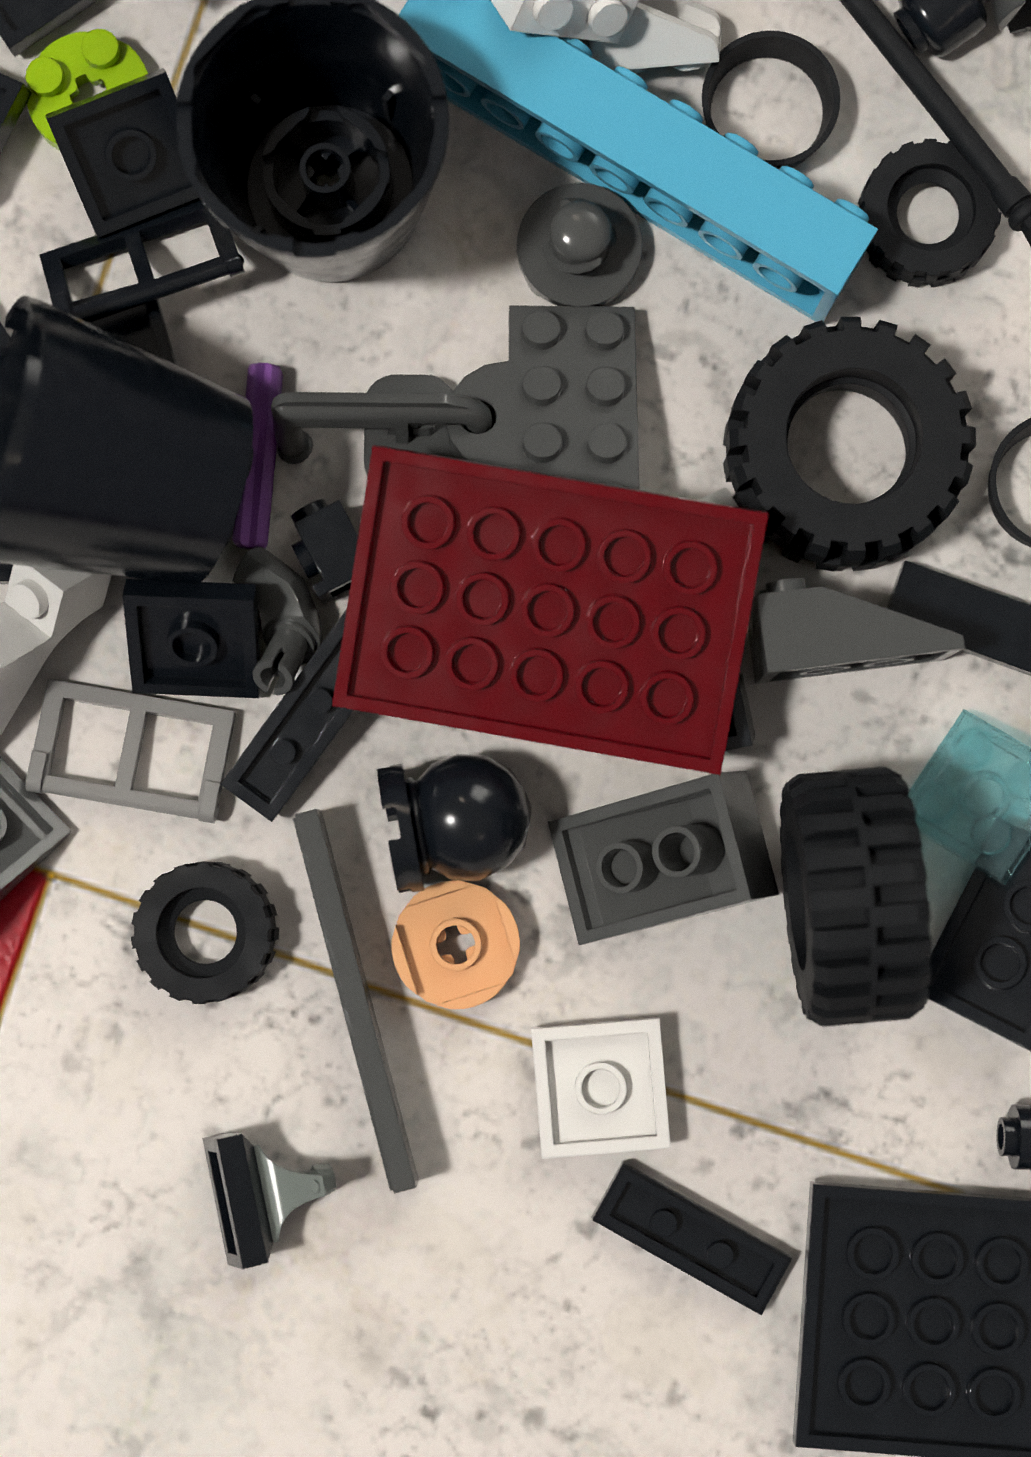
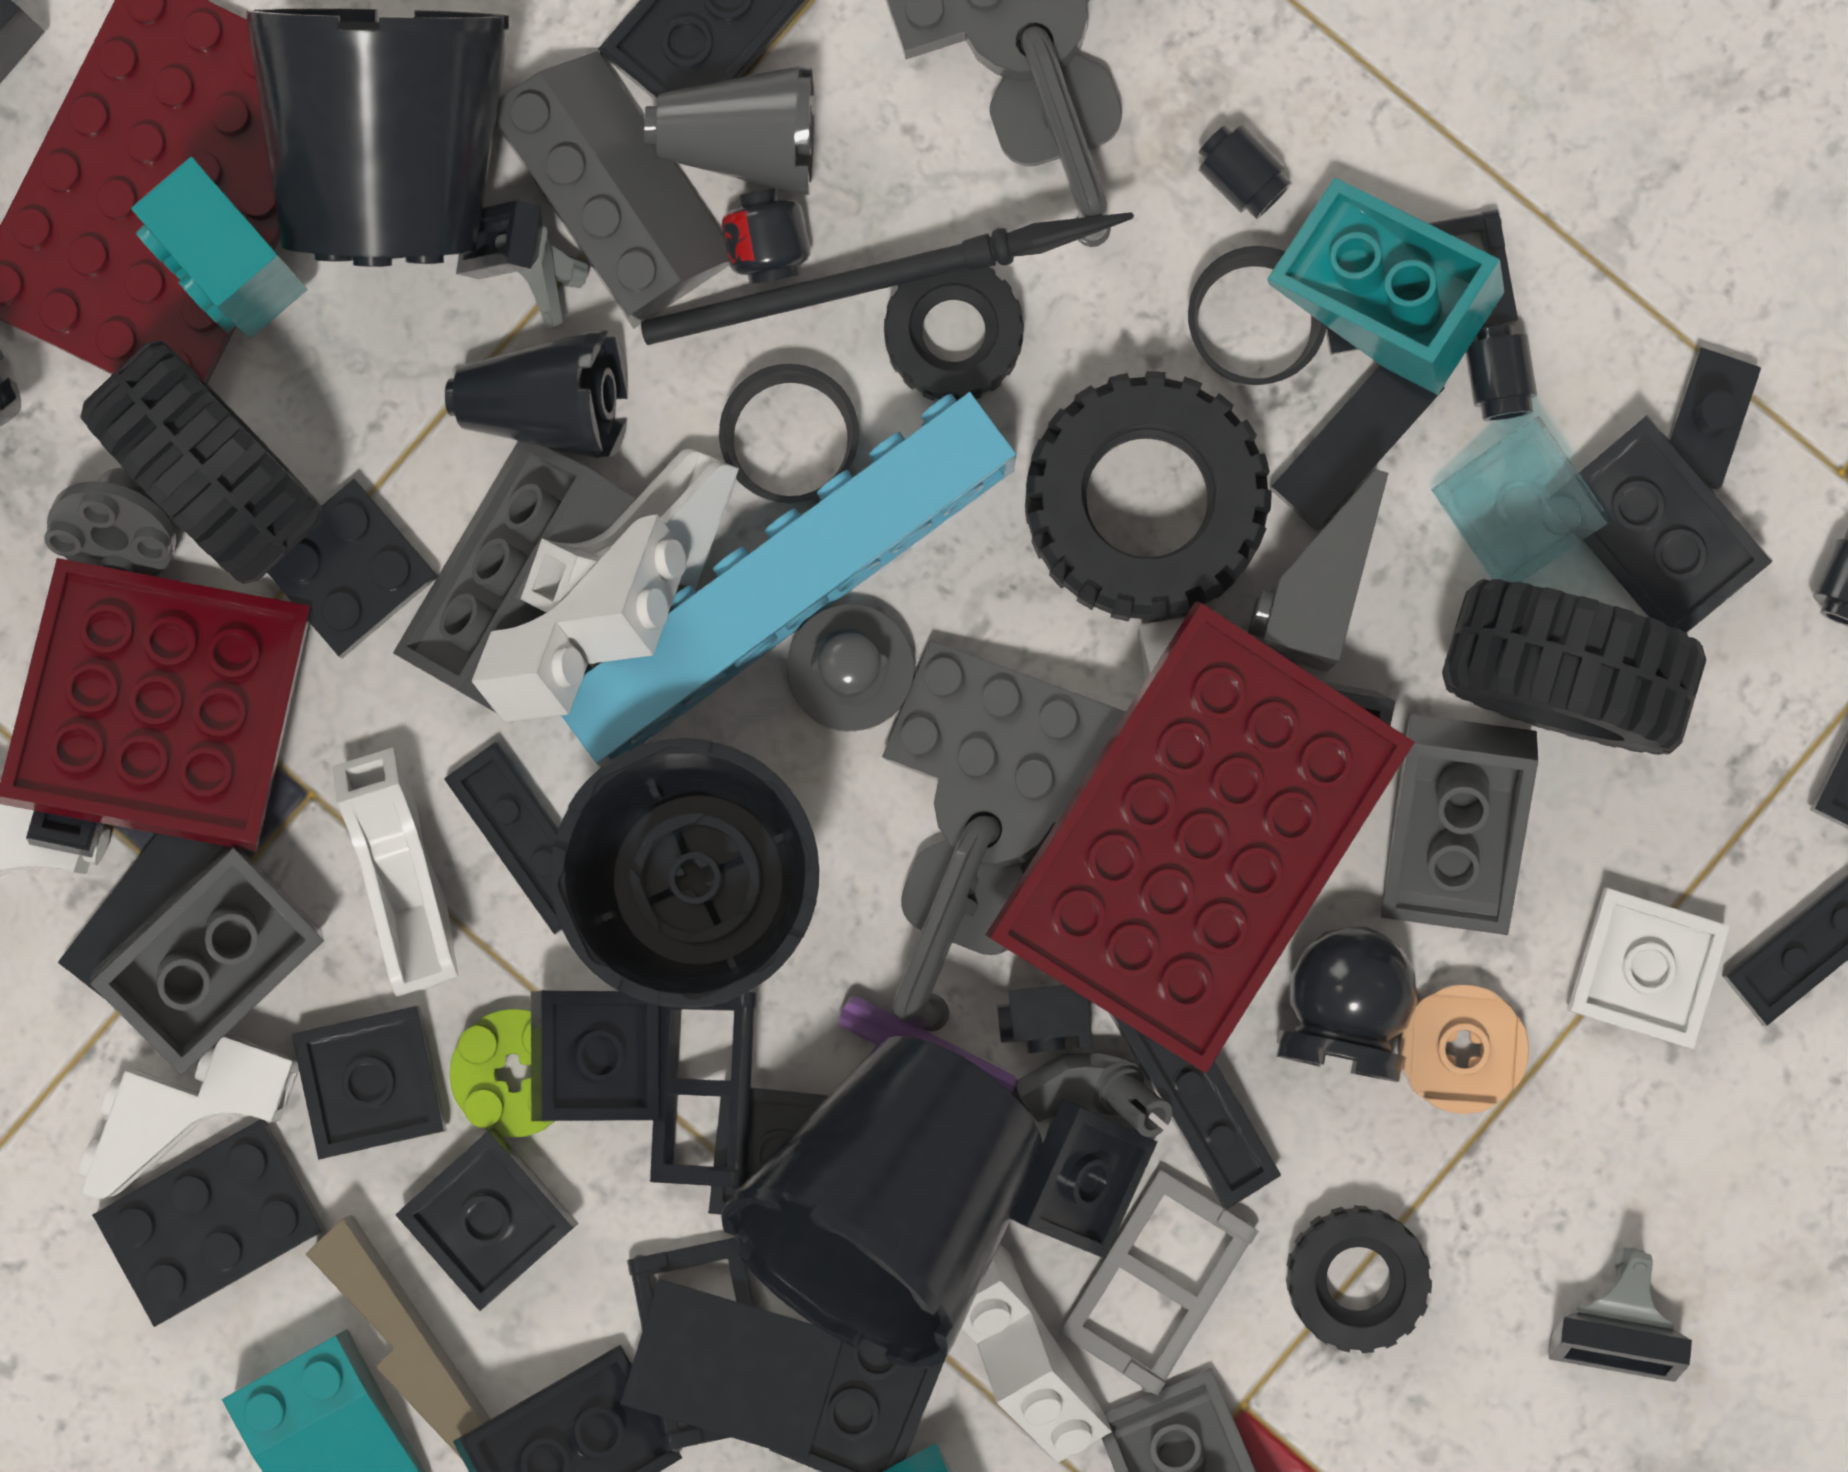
camera: 65 degrees left, 0 degrees up
(356, 1001) = (1479, 1163): dark grey tile -> none

